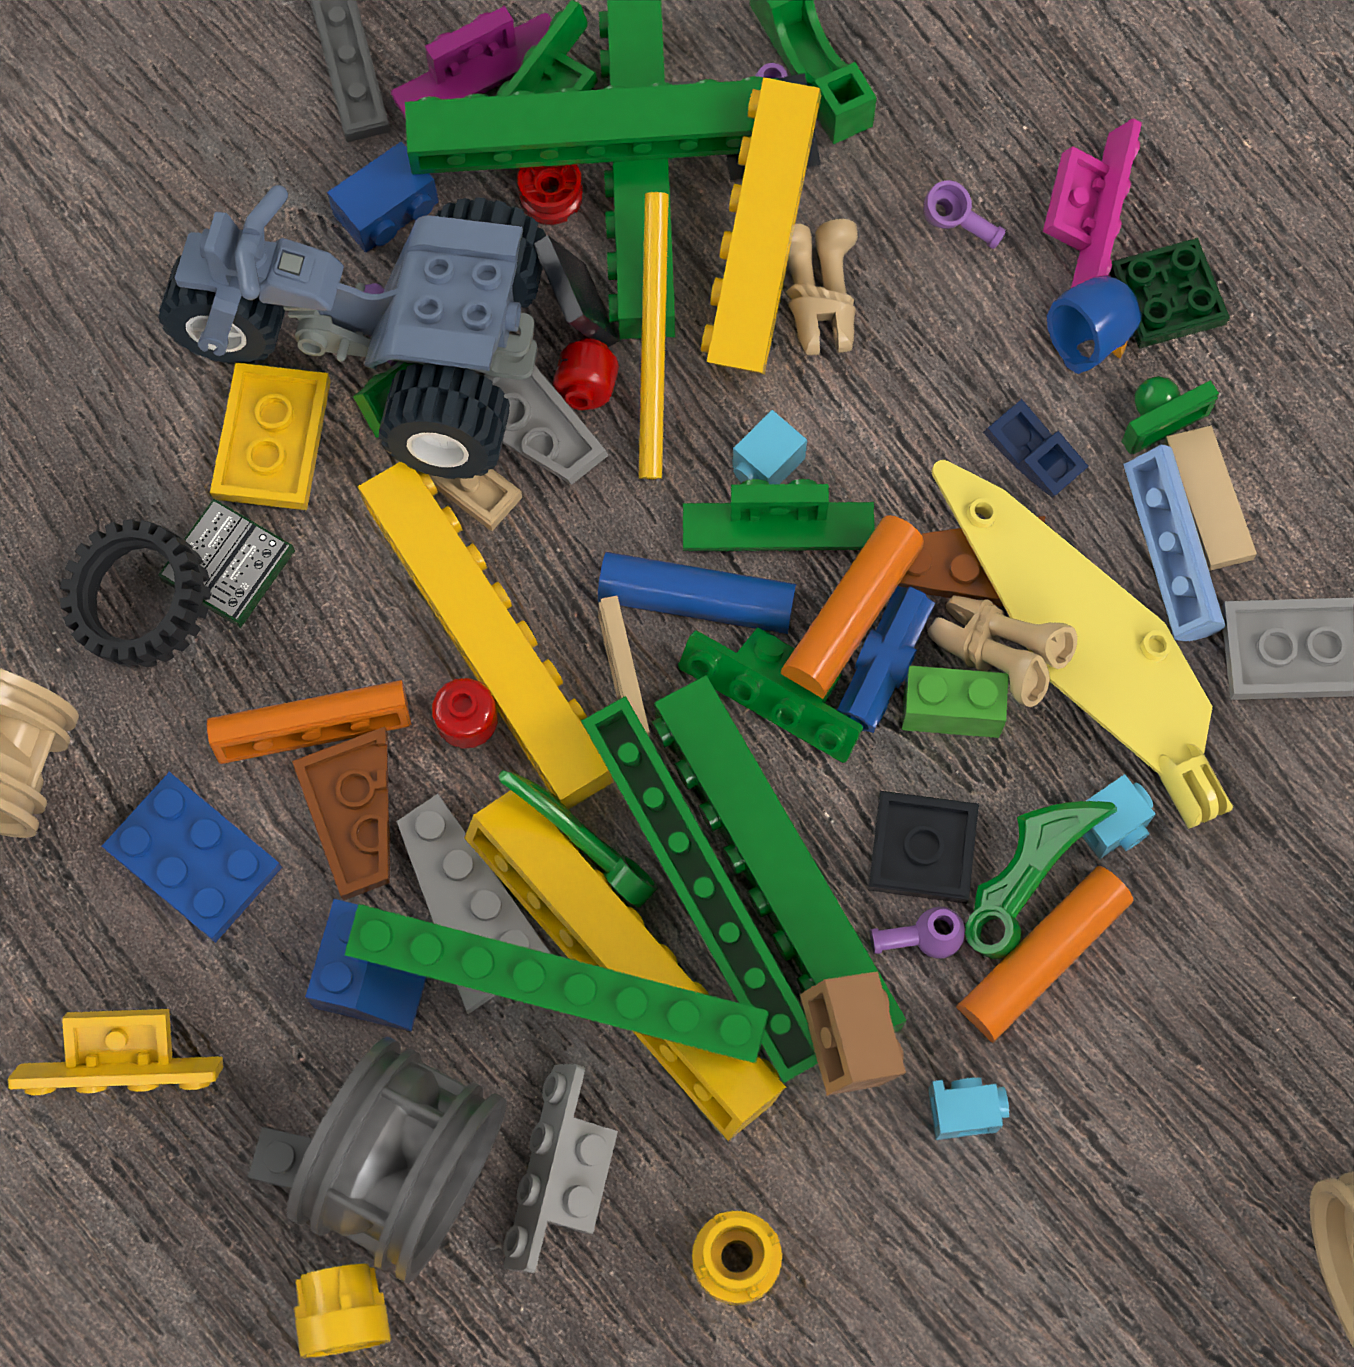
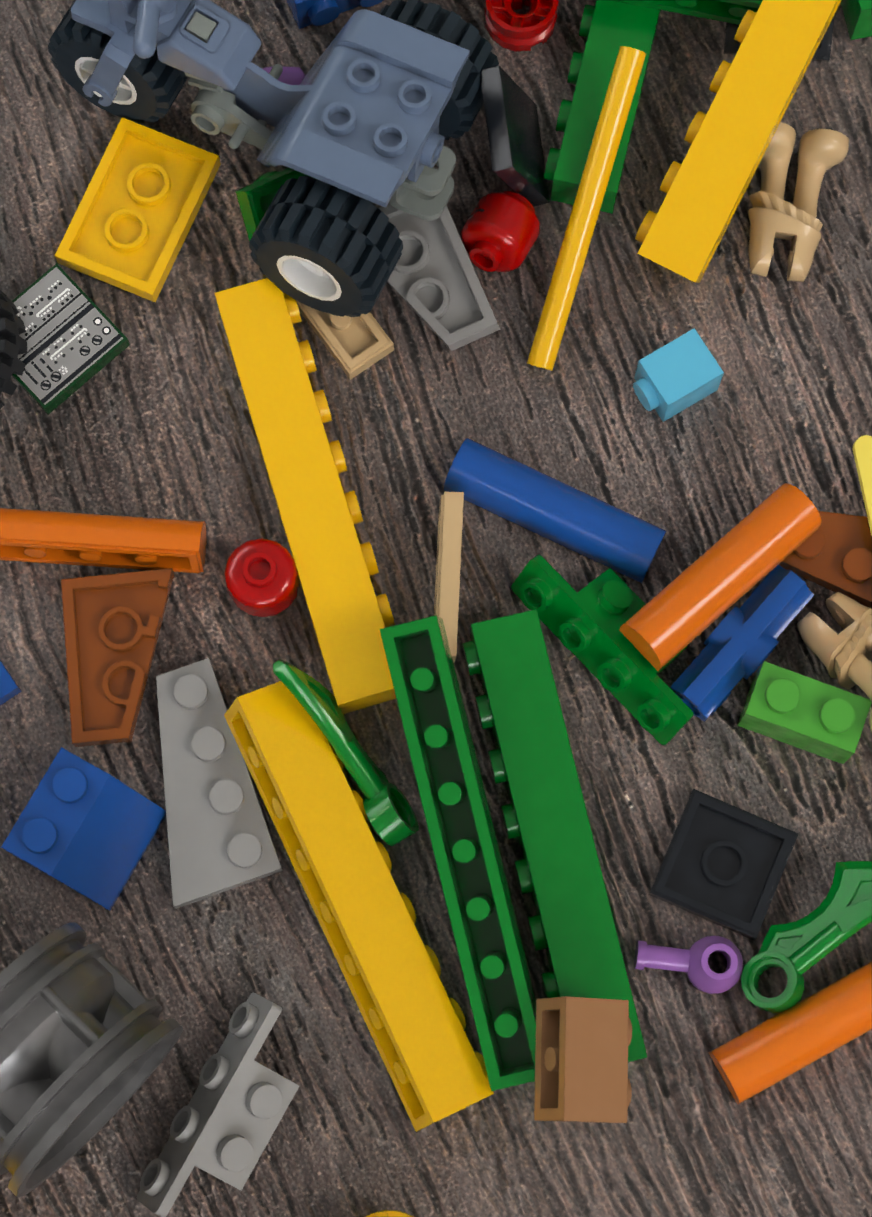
camera: 15 degrees right, 5 degrees up
(557, 983) = (273, 915): green brick -> none
(777, 519) = (666, 453): green bracket -> none
(967, 1108) = (688, 1171): medium azure brick -> none

